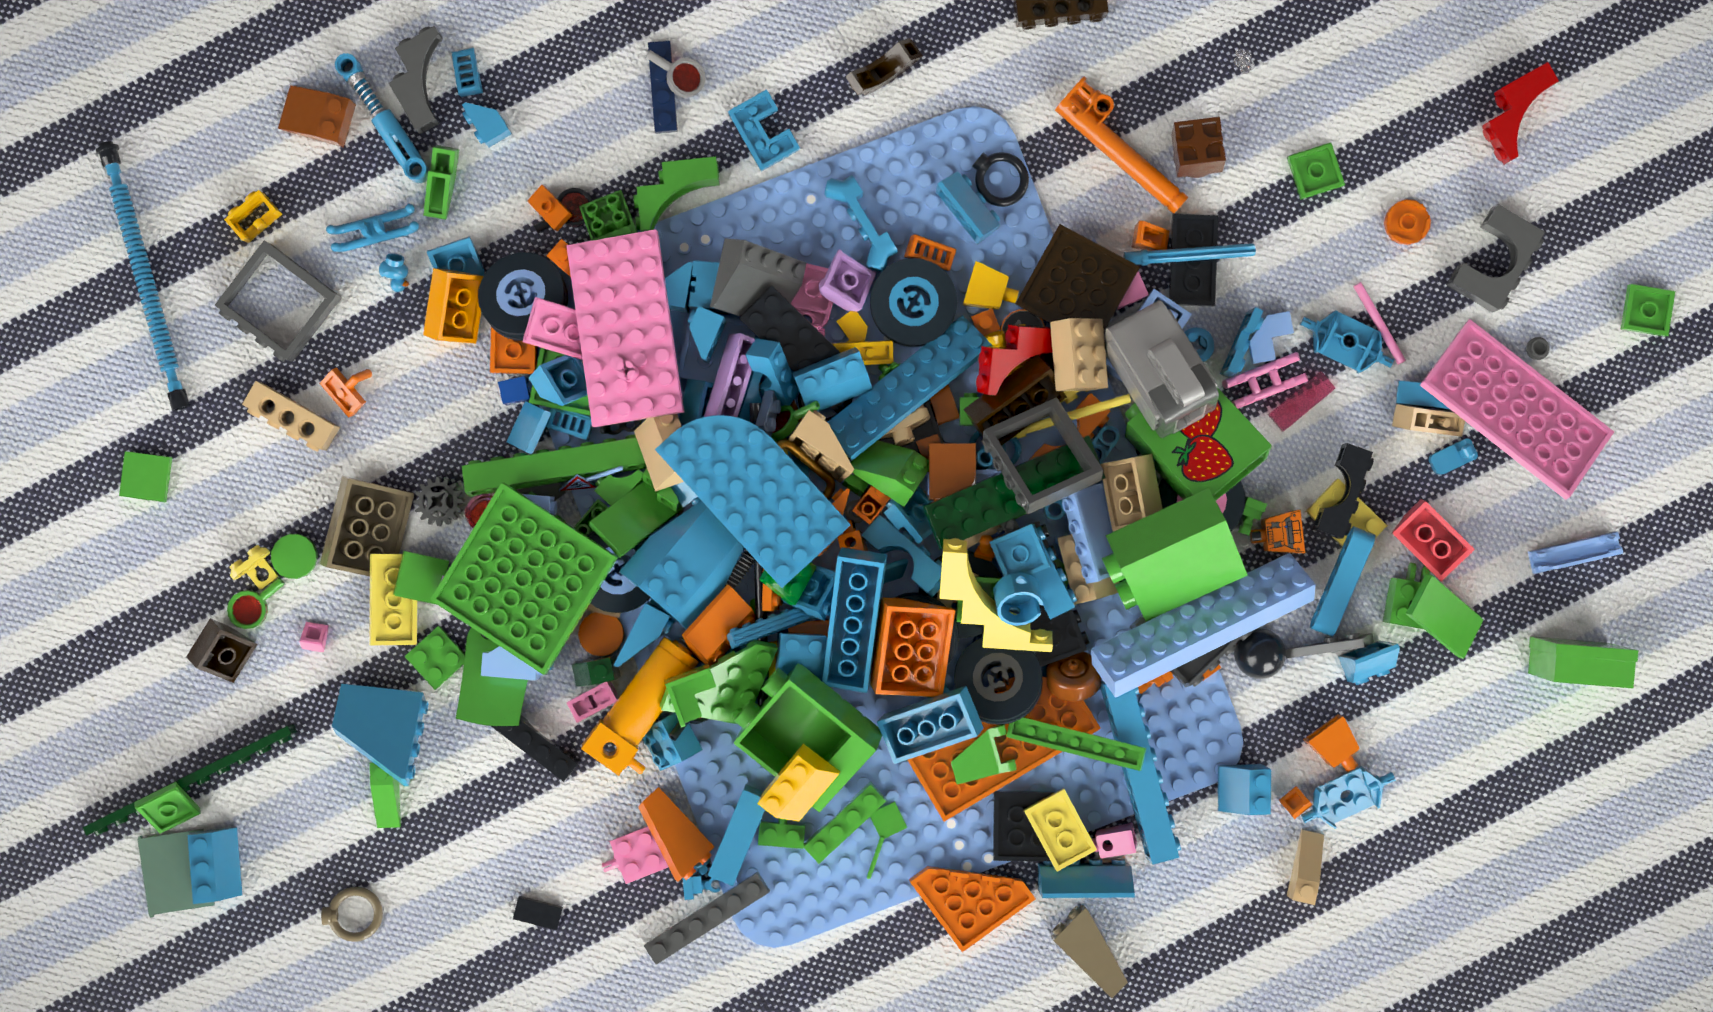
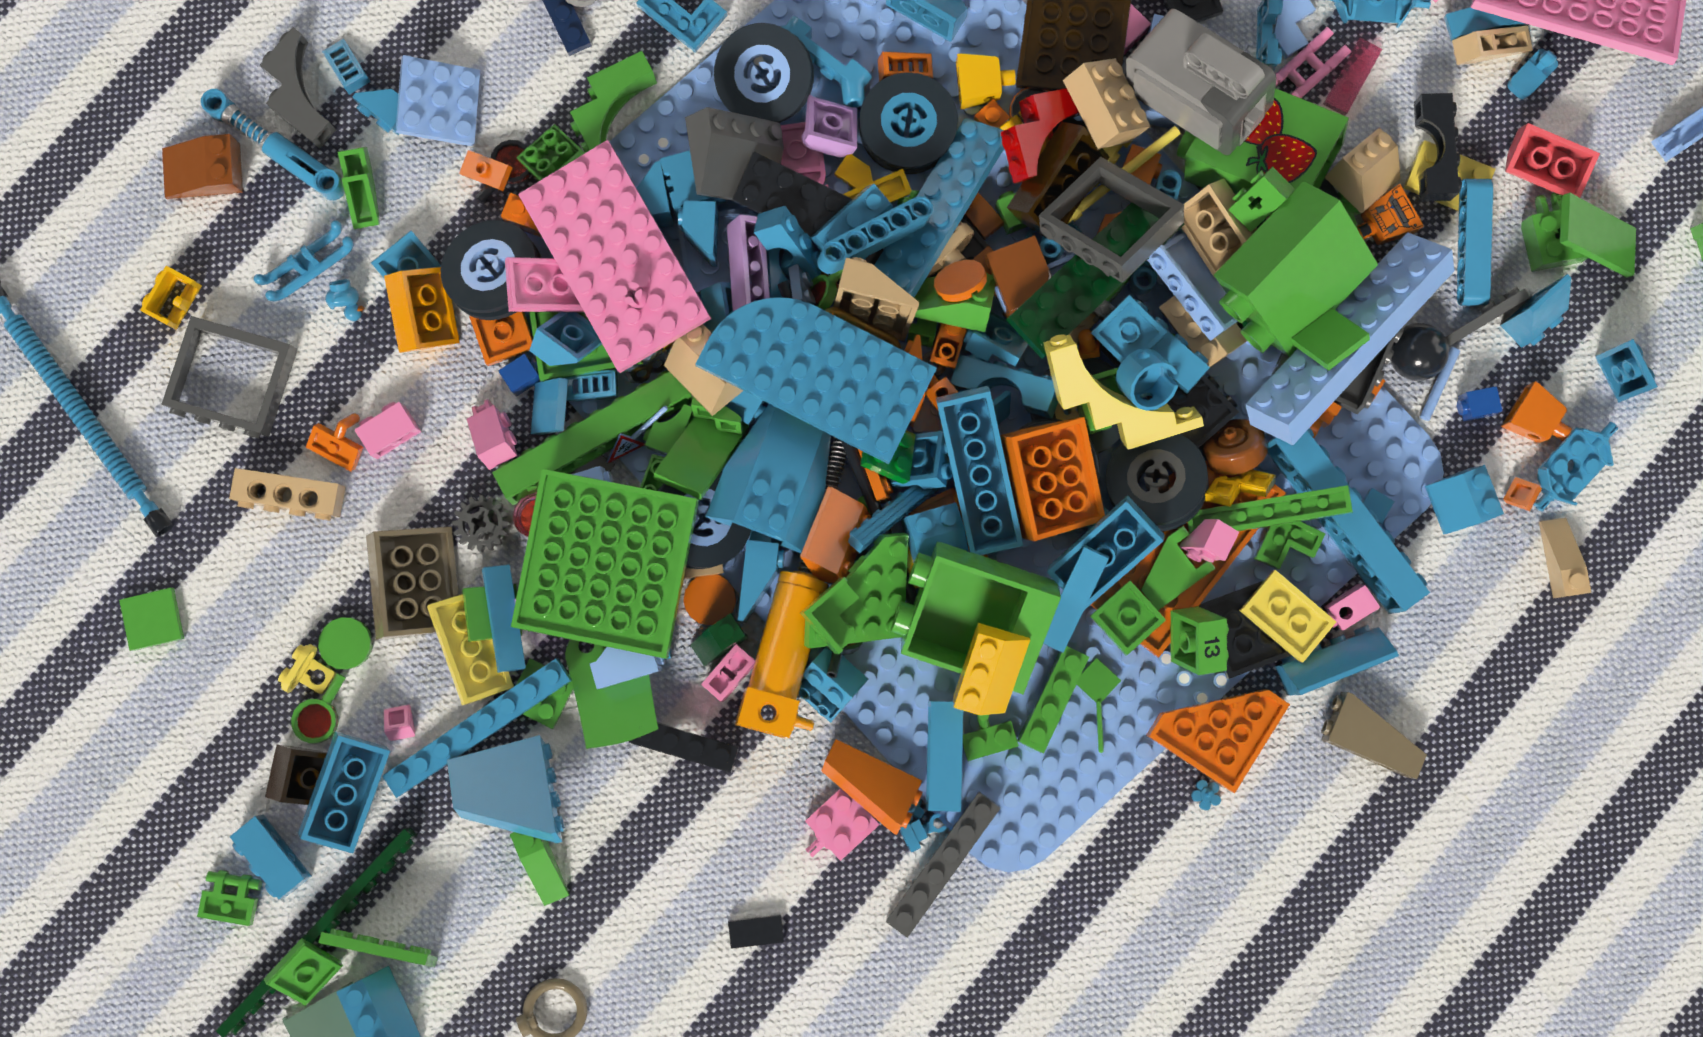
camera: 20 degrees left, 5 degrees down
(126, 732) = (229, 907): none -> bright green plate
(173, 705) = (269, 857): none -> dark azure brick
(227, 808) = (371, 946): none -> bright green plate
(250, 678) = (343, 792): none -> dark azure brick
(375, 666) = (477, 727): none -> dark azure plate
(391, 394) = (387, 429): none -> bright pink brick
(428, 580) = (501, 606): none -> dark azure tile
(473, 433) = (491, 435): none -> bright pink brick
(531, 134) = (437, 101): none -> light blue plate
(834, 213) = (789, 57): none -> black wheel
(853, 391) = (881, 225): none -> dark azure beam
(891, 751) = (1075, 597): none -> dark azure tile
(899, 457) = (959, 280): none -> orange tile
(930, 781) = (1127, 618): none -> bright green plate
(940, 944) = (1206, 794): none -> dark azure plant
(979, 822) = (1199, 640): none -> bright green brick
(1018, 748) = (1210, 541): none -> bright pink slope
(1051, 708) = (1225, 489): none -> yellow tile
(1078, 766) = (1282, 537): none -> bright green plate
(1170, 766) = (1378, 504): none -> dark azure tile
(1171, 486) = (1272, 190): none -> bright green brick
(1181, 623) = (1330, 339): none -> bright green tile
(1266, 686) = (1439, 385): none -> light blue bar
(1276, 490) = (1367, 170): none -> tan slope
(1290, 715) = (1479, 403): none -> blue brick
(1424, 736) = (1626, 370): none -> dark azure slope

